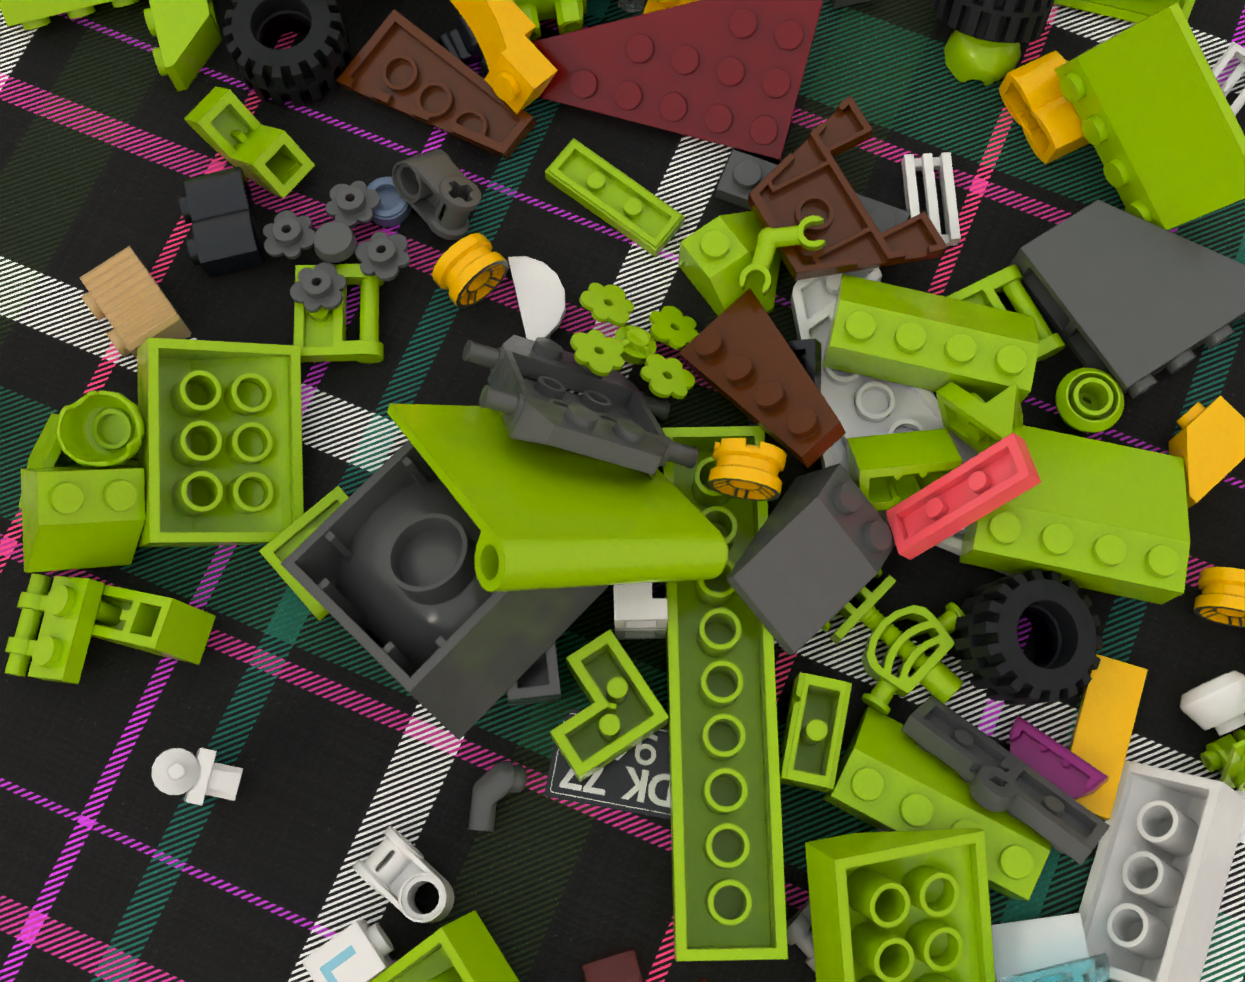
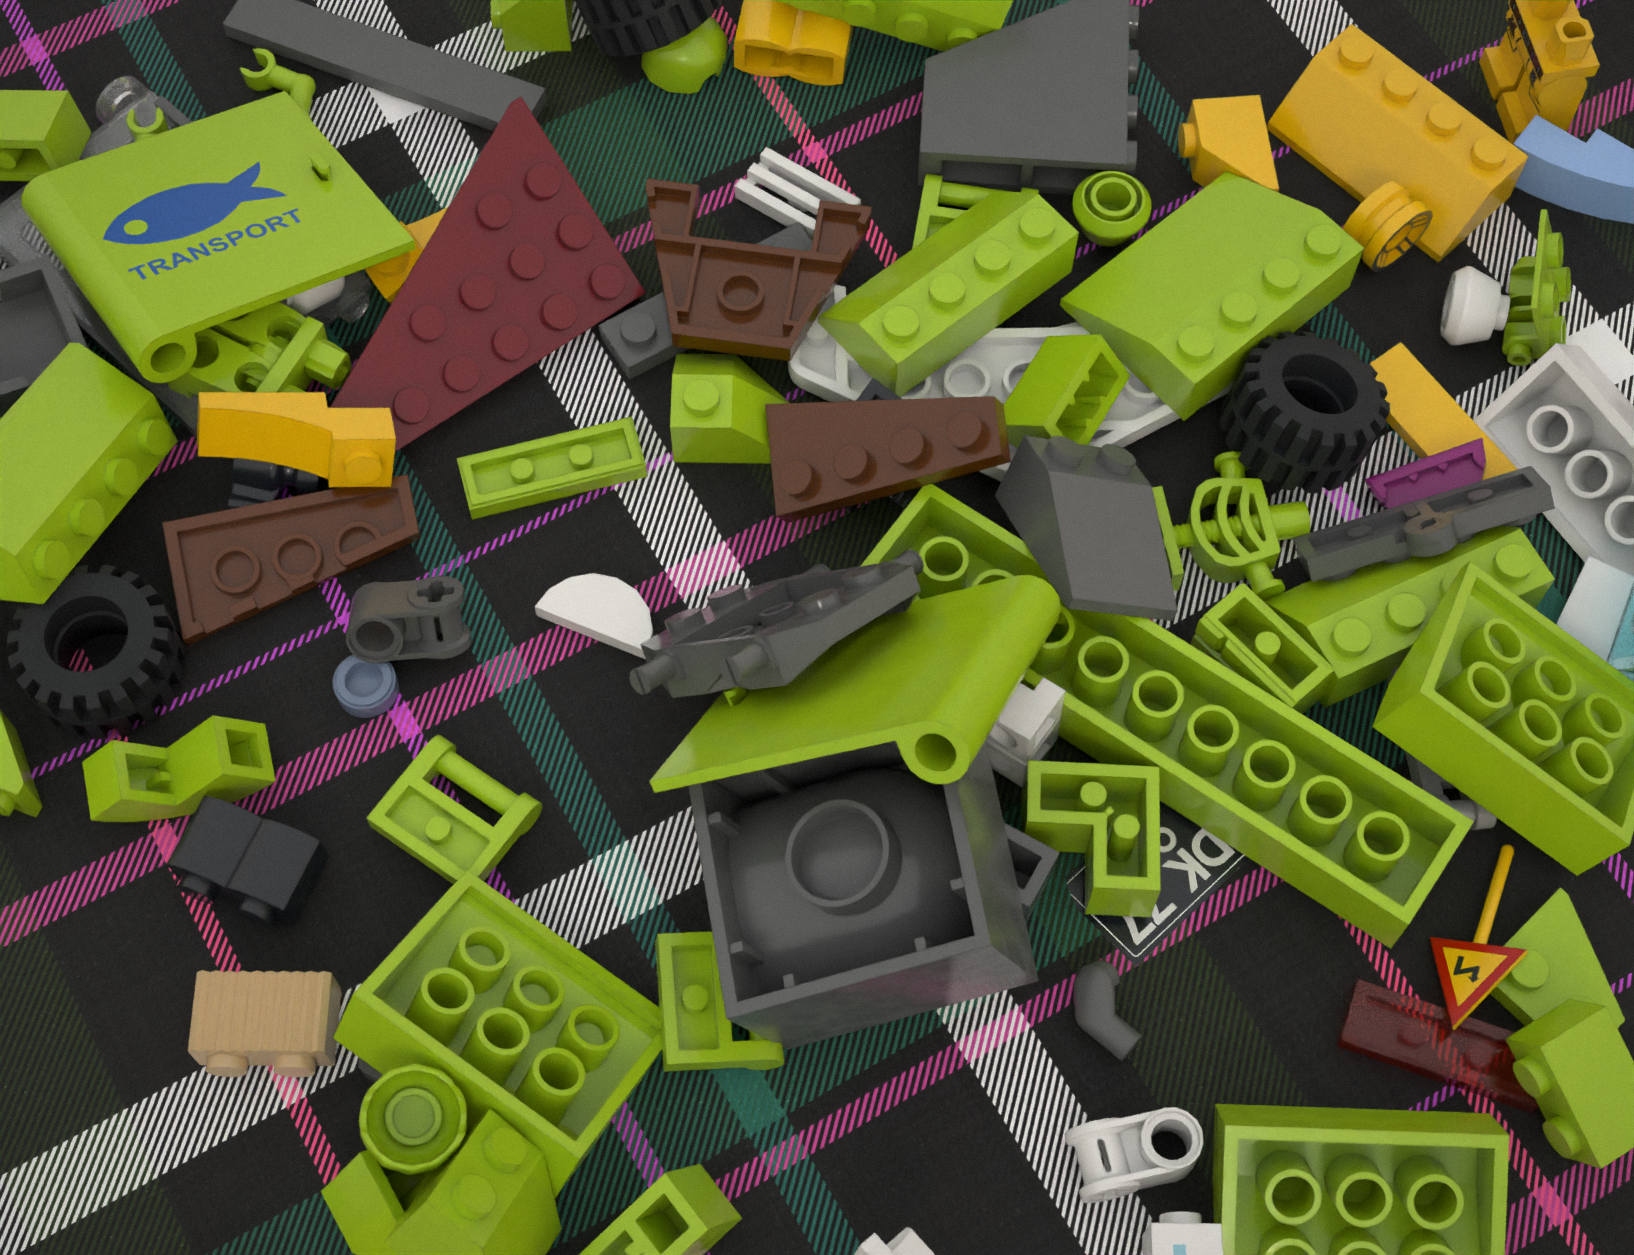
camera: 55 degrees left, 10 degrees down
(335, 243) = (378, 760): dark grey plant -> none
(470, 270) = (524, 647): yellow wheel -> none
(633, 343) = (736, 549): lime plant -> none
(747, 470) = (971, 515): yellow wheel -> none
(772, 238) = (739, 347): lime arm -> none
(962, 496) = (1139, 356): coral plate -> none
(980, 422) = (1081, 297): lime slope -> none

